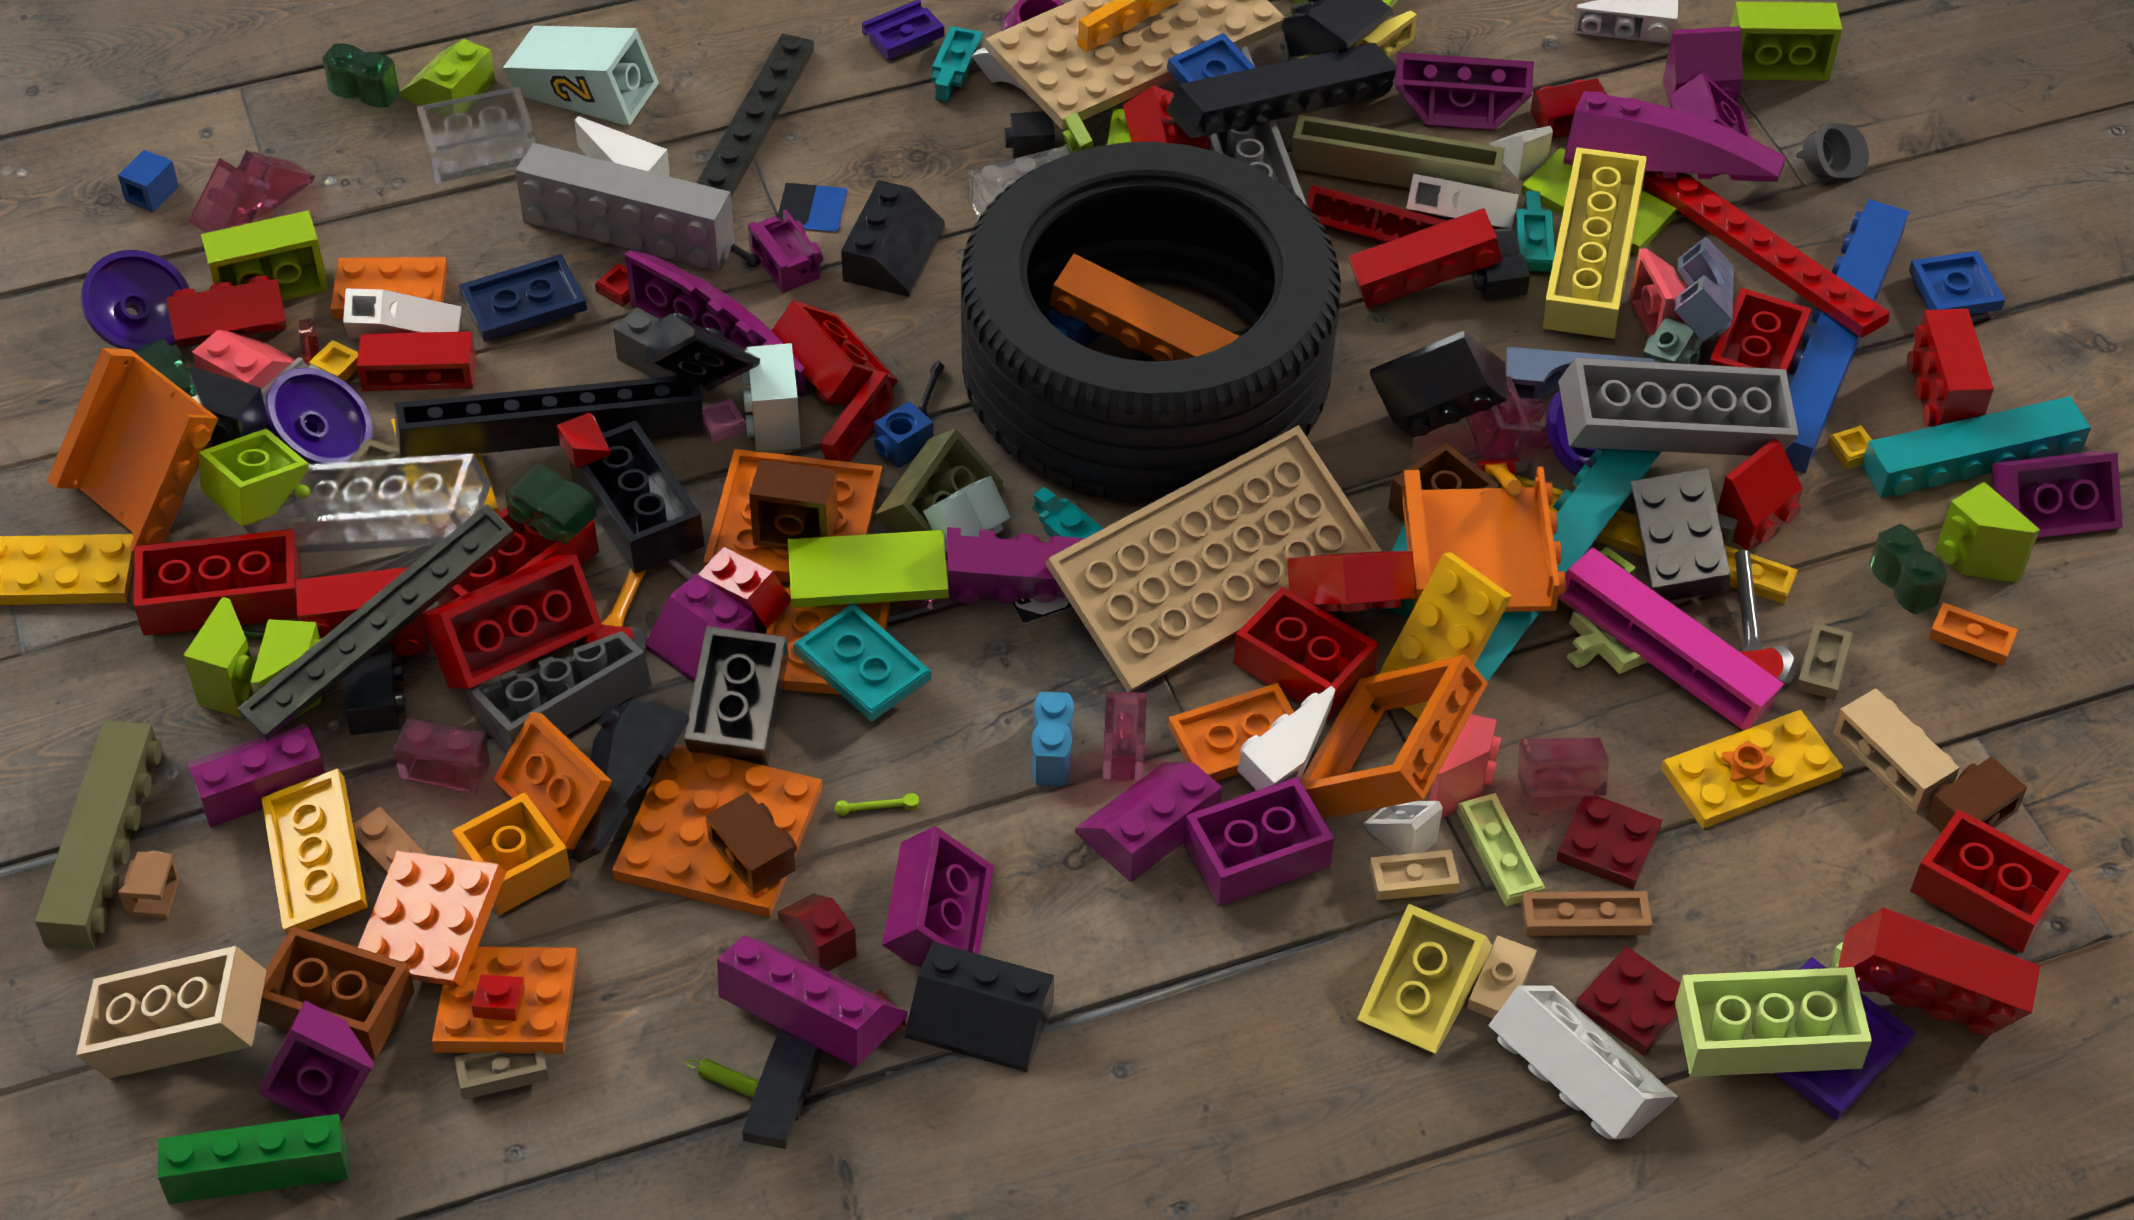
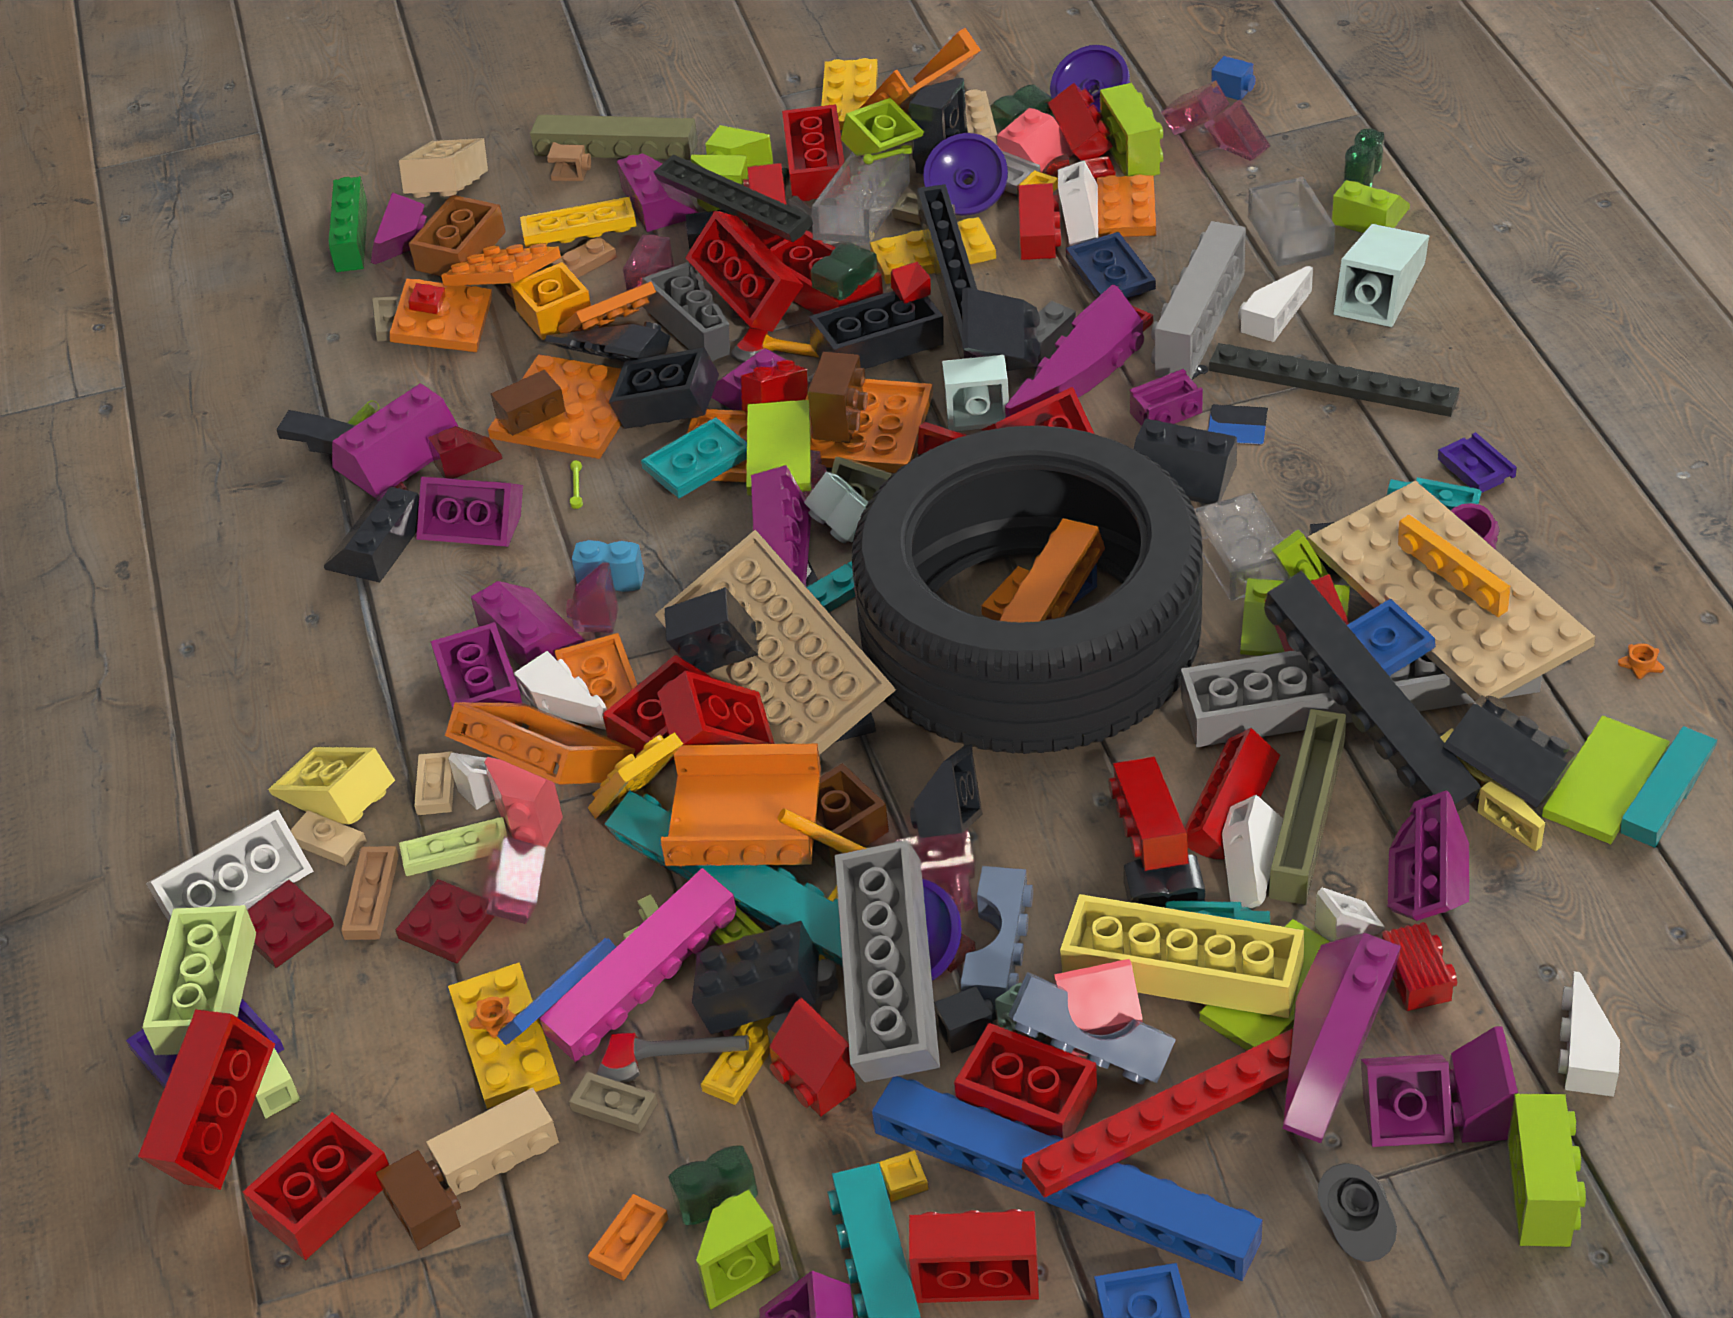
camera: 100 degrees right, 5 degrees down
(305, 308) = (1100, 167): none -> red tile
(1216, 589) = (711, 630): none -> black brick
(1714, 705) = (555, 991): none -> blue tile

